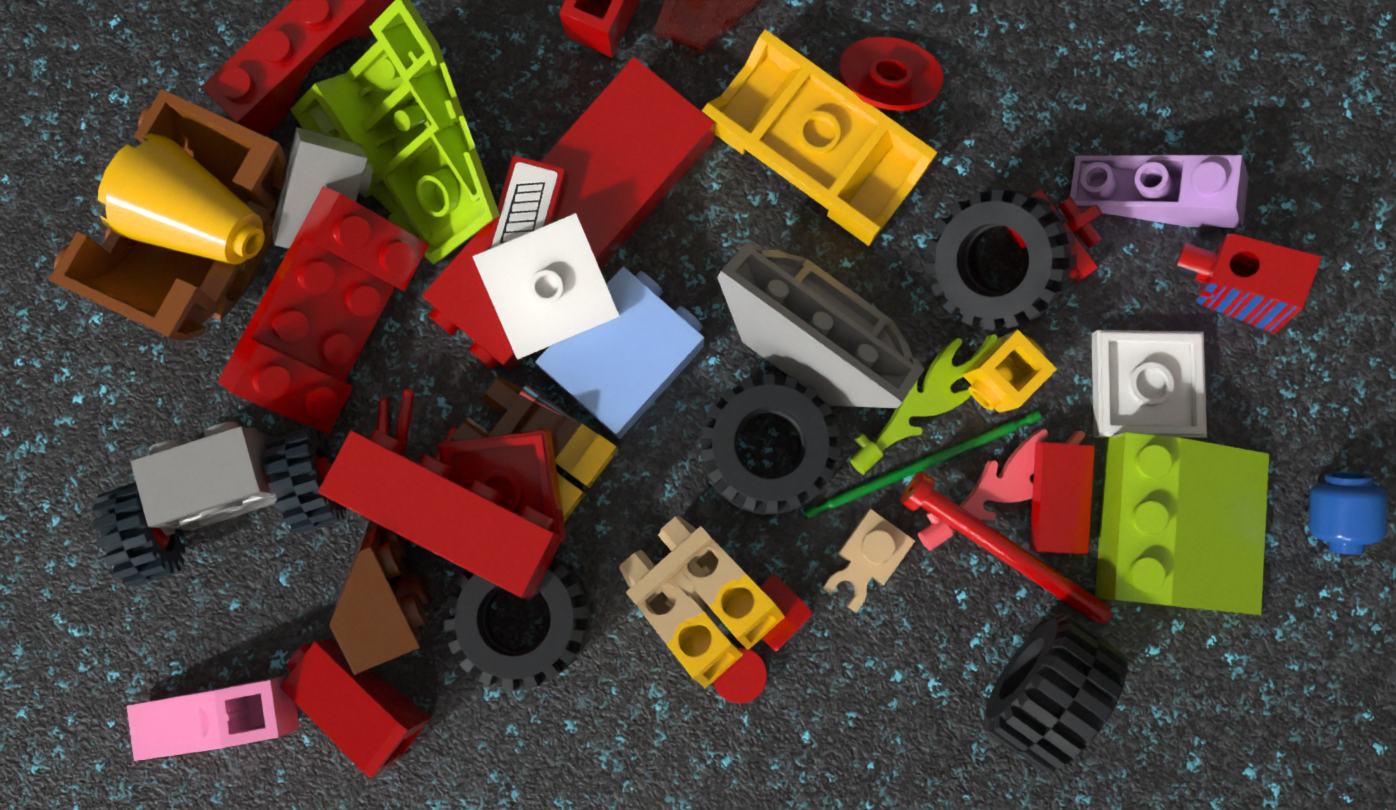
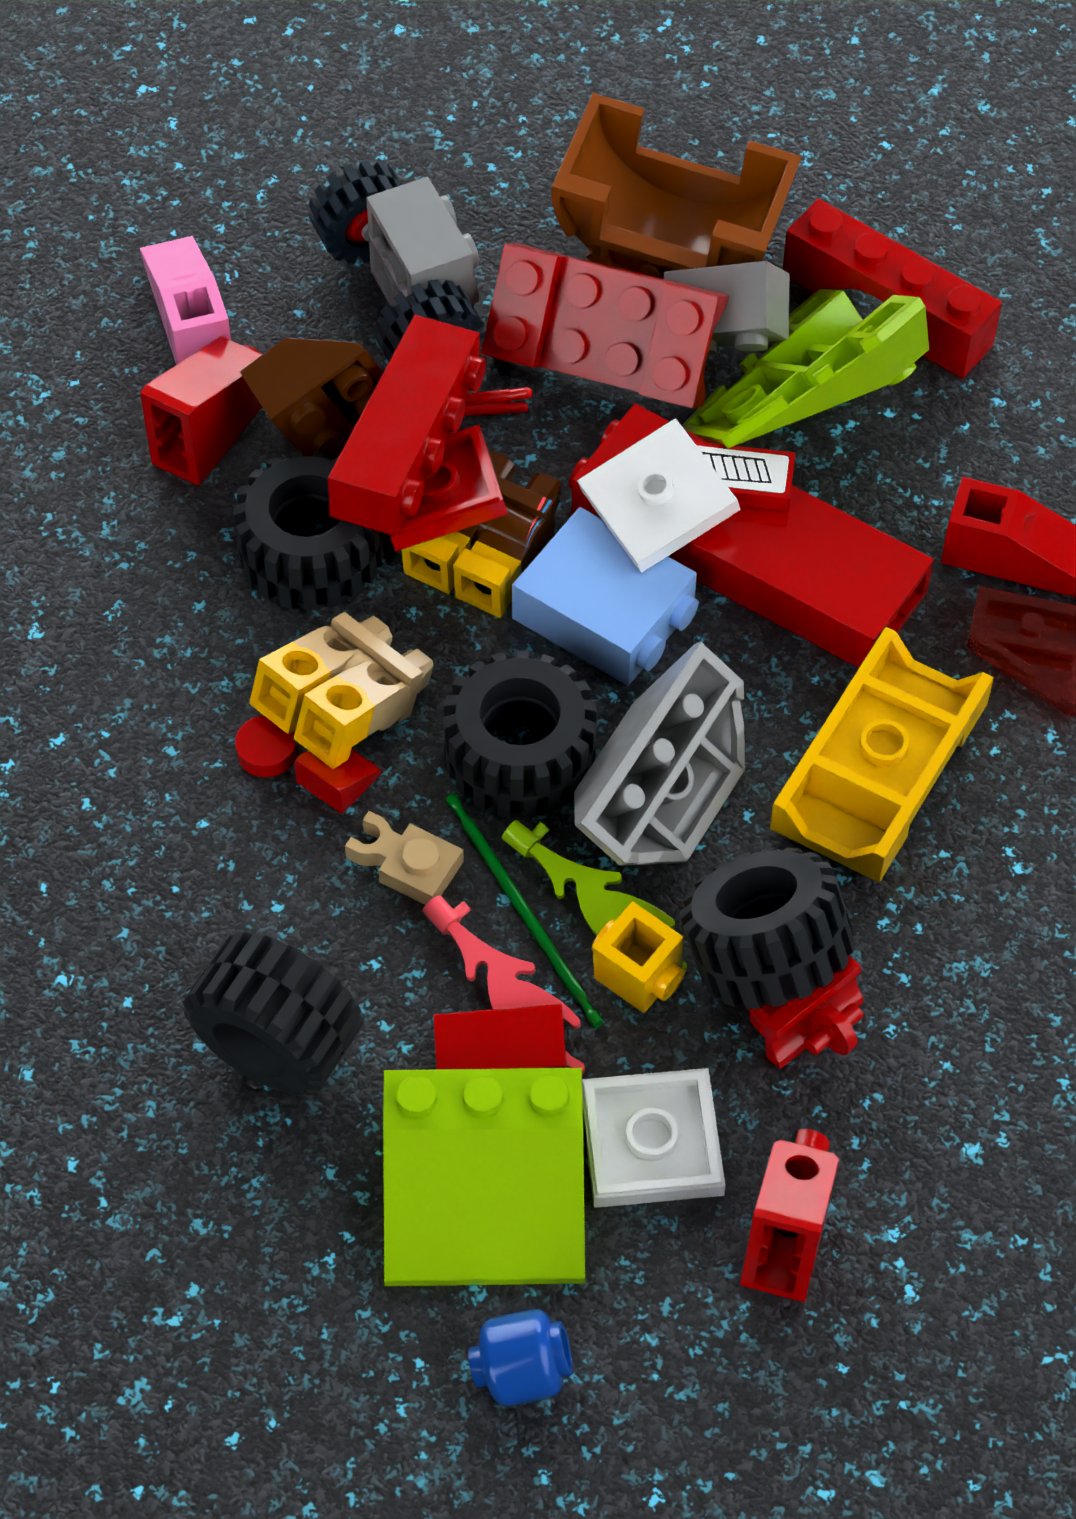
camera: 80 degrees right, 25 degrees down
(176, 203) = (690, 183): yellow cone -> none
(891, 73) = (976, 818): red dish -> none
(921, 493) = (484, 881): red bar -> none
(1164, 188) = (895, 1128): lavender slope -> none

